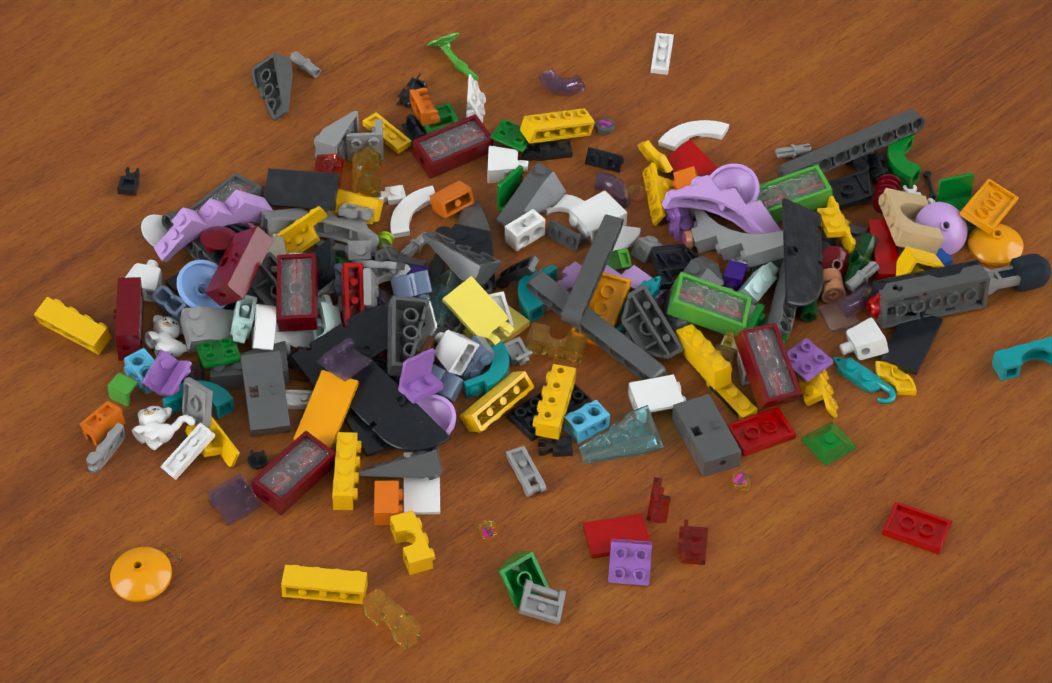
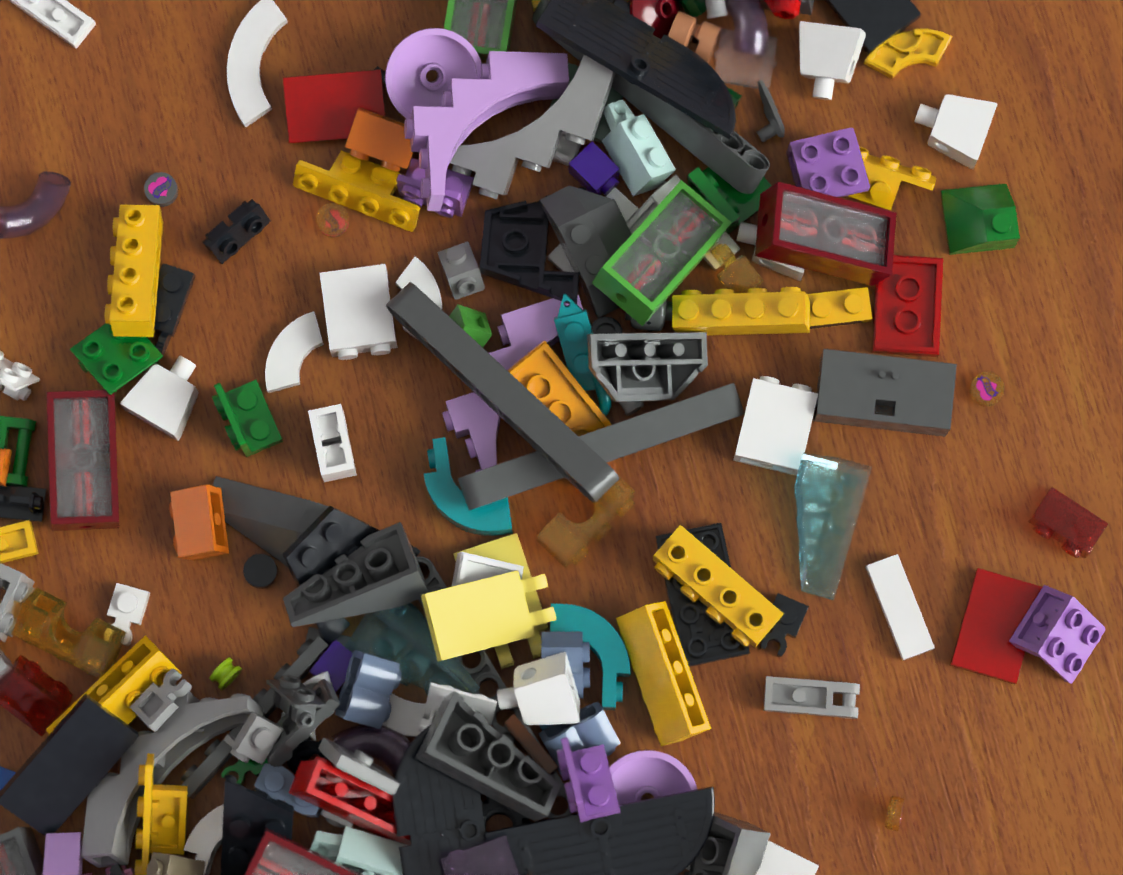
camera: 60 degrees left, 30 degrees up
(406, 208) = (171, 602): white tile -> none
(415, 245) = (262, 630): light grey axle -> none
(516, 571) = (1010, 811): green slope -> none
(517, 271) = (426, 502): black hinge -> none
(518, 352) = (574, 586): light grey bracket -> none
(536, 192) = (271, 392): dark grey wedge -> none
(541, 607) = (1082, 809): light grey plate -> none
(564, 235) = (379, 376): dark grey hinge -> none
(586, 421) = (773, 554): medium azure brick -> none
(598, 491) = (900, 607): none -> white tile
(614, 187) = (308, 249): cylinder -> none
(652, 154) = (268, 152): yellow tile -> none
(658, 503) = (979, 541): clear red bracket -> none
(687, 238) = (480, 198): nougat tile -> none
(818, 336) = (770, 110): none -> dark grey bar
(863, 378) = (884, 96): teal plate -> none
(871, 411) = (958, 127): none -> white torso

